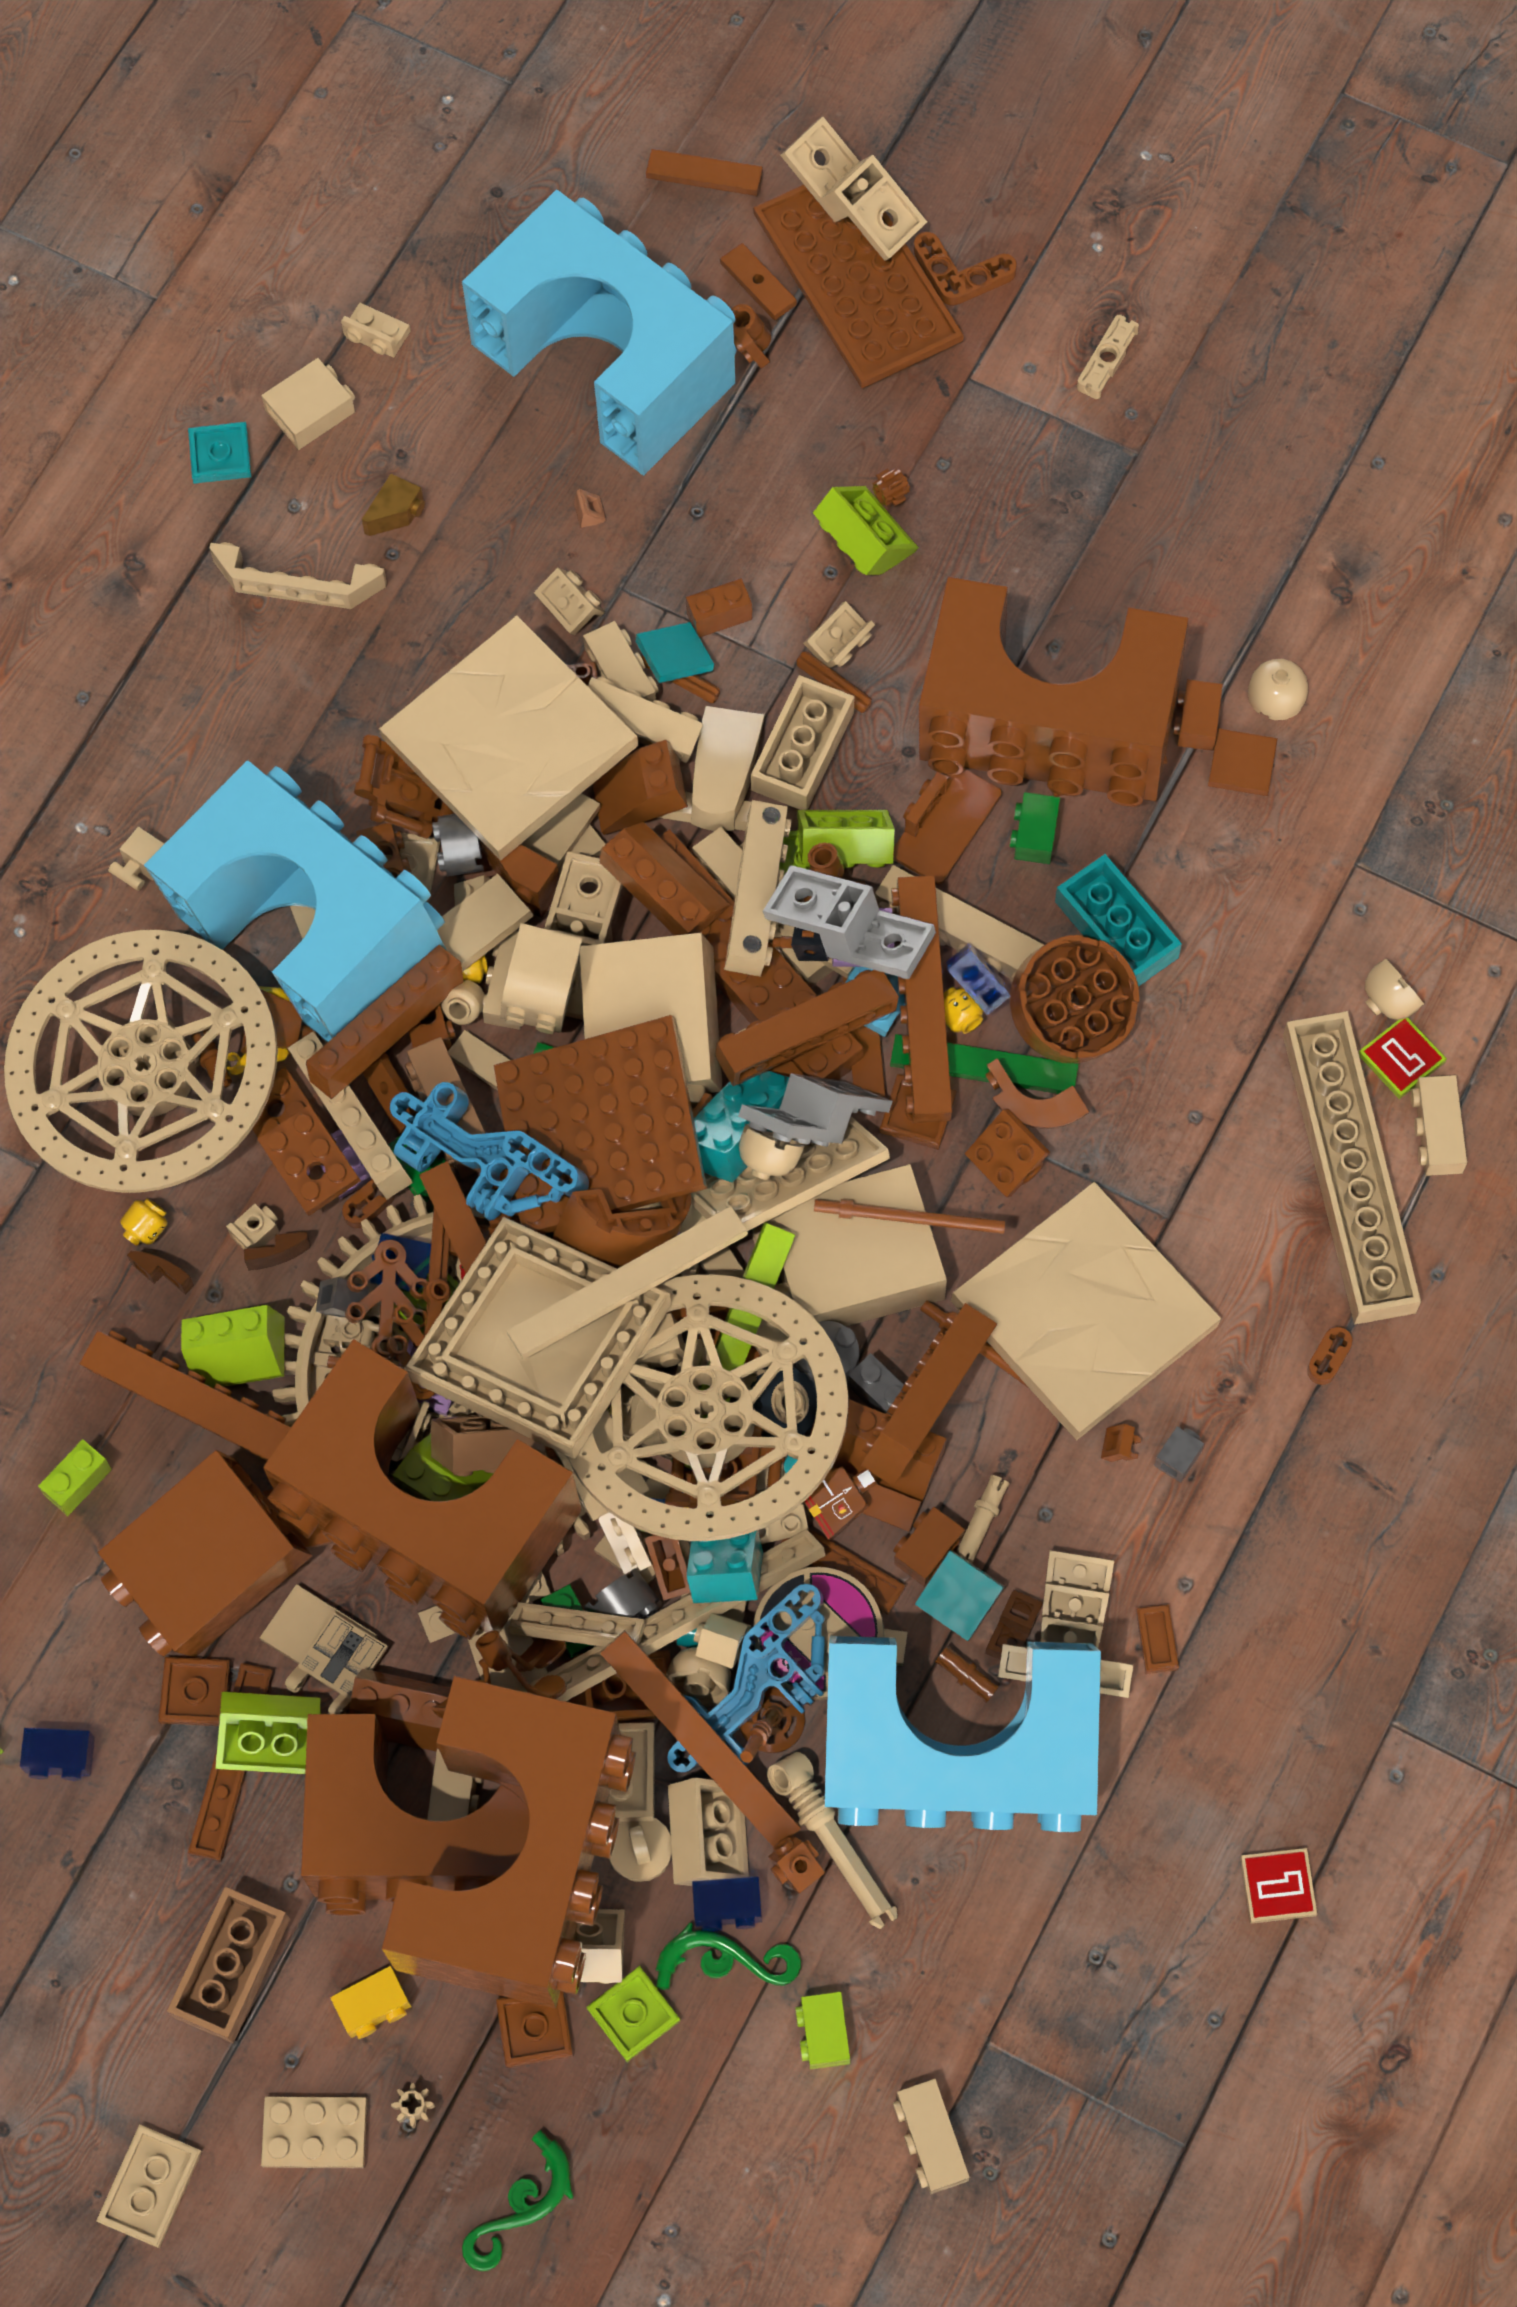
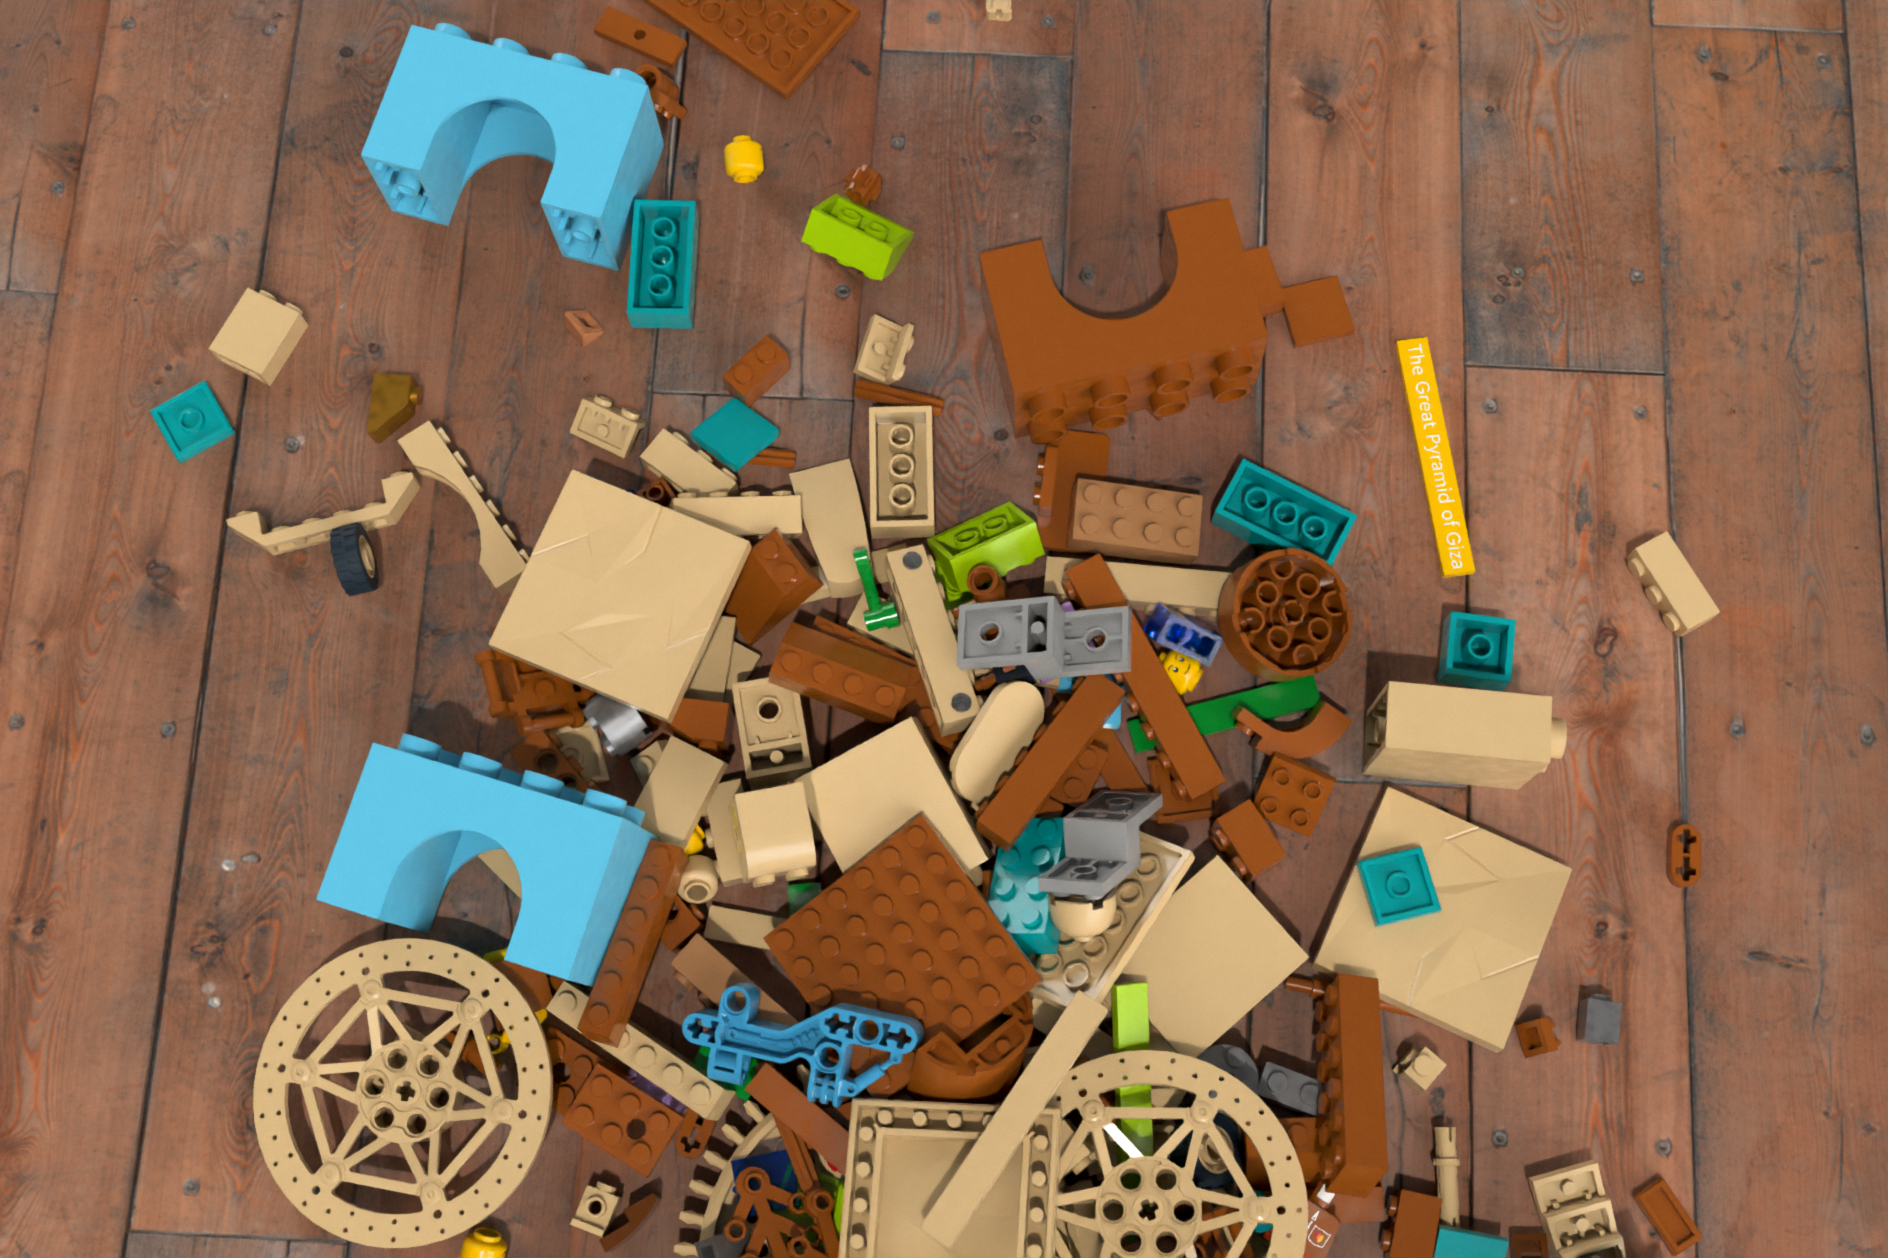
camera: 25 degrees left, 5 degrees up
(136, 853) = (304, 868): tan brick -> none
(301, 620) = (354, 559): none -> black wheel
(375, 330) = (291, 235): tan bracket -> none
(386, 1085) = (666, 1001): dark orange tile -> none
(407, 567) = (433, 459): none -> tan arch
(682, 483) = (663, 264): none -> teal brick
(722, 850) = (878, 615): none -> green brick
(768, 986) = (996, 740): none -> tan tile
(797, 423) = (743, 159): none -> yellow head
(847, 1209) = (1182, 930): dark orange bar -> none
(945, 1172) = (1246, 842): none -> dark orange brick
(984, 869) = (1134, 522): none -> medium nougat brick
(1002, 1422) = (1419, 1068): none -> tan brick
(1036, 828) = (1159, 457): green brick -> none
(1057, 1264) = (1398, 887): none -> teal tile
(1170, 1158) = (1460, 735): none -> tan brick
(1231, 1104) = (1476, 651): none -> teal brick
(1278, 689) = (1314, 227): tan cylinder -> none
(1284, 930) = (1434, 458): none -> yellow tile
(1351, 1168) = (1617, 665): tan brick -> none
(1390, 993) = (1565, 476): tan cylinder -> none
(1402, 1056) = (1601, 532): red tile -> none

